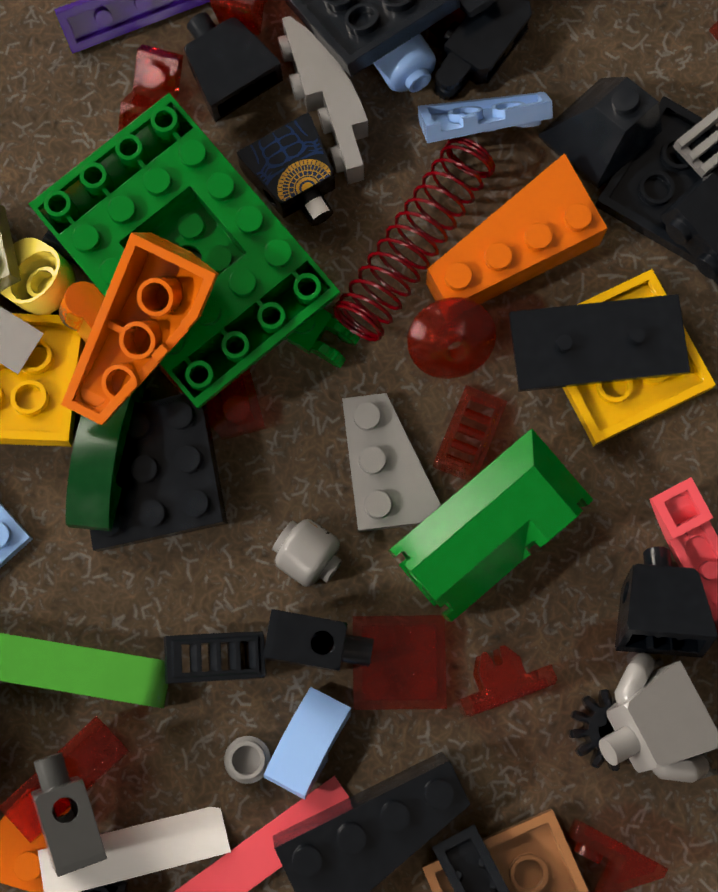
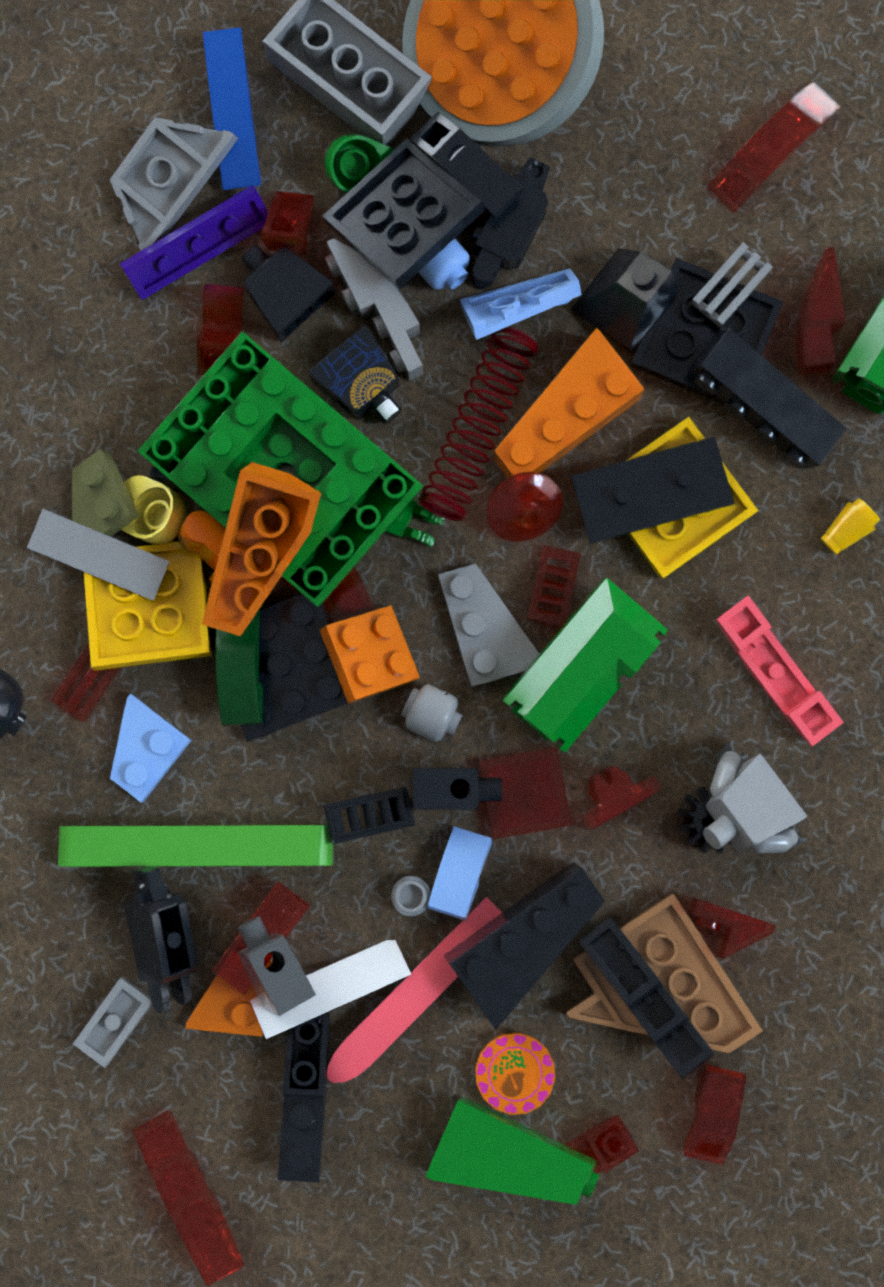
camera: 10 degrees left, 5 degrees up
(248, 473) = (369, 654): none -> orange plate
(664, 609) = (741, 711): black torso -> none

